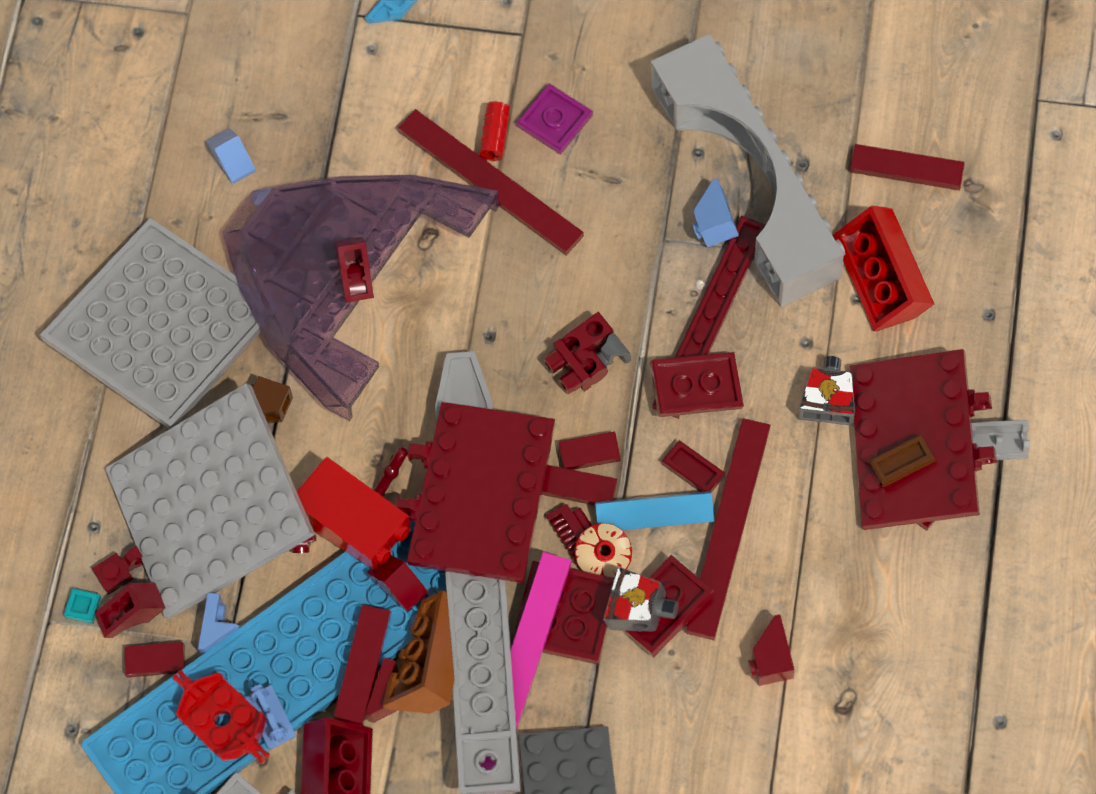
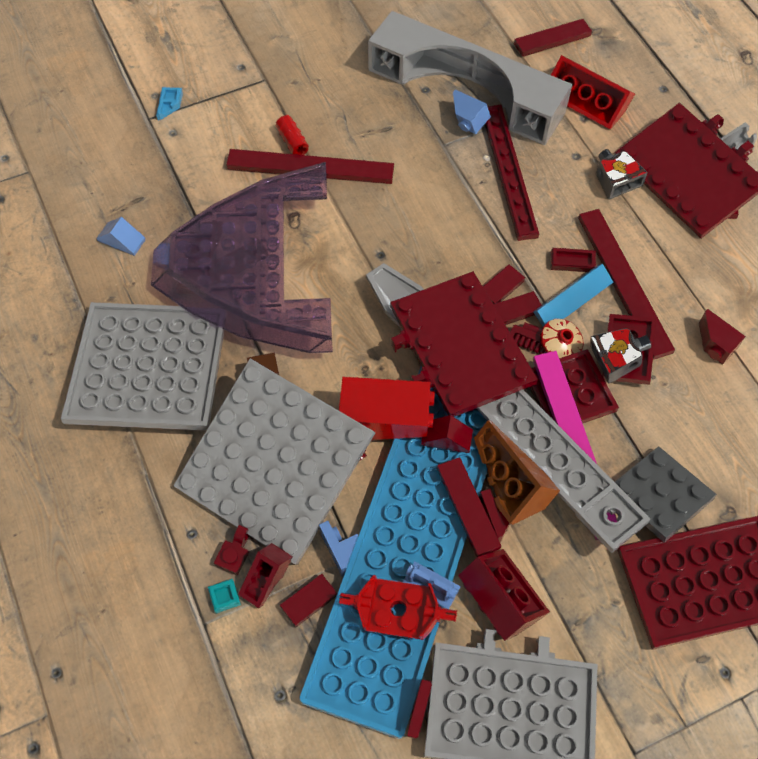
camera: 40 degrees left, 5 degrees down
(354, 269) = (271, 247): dark red arch -> none
(391, 470) = (385, 364): dark red piece -> none
(554, 118) = (323, 113): magenta tile -> none
(578, 354) = (452, 235): dark red hips -> none
(696, 384) = (536, 209): dark red tile -> none
(902, 460) = (698, 181): reddish brown tile -> none

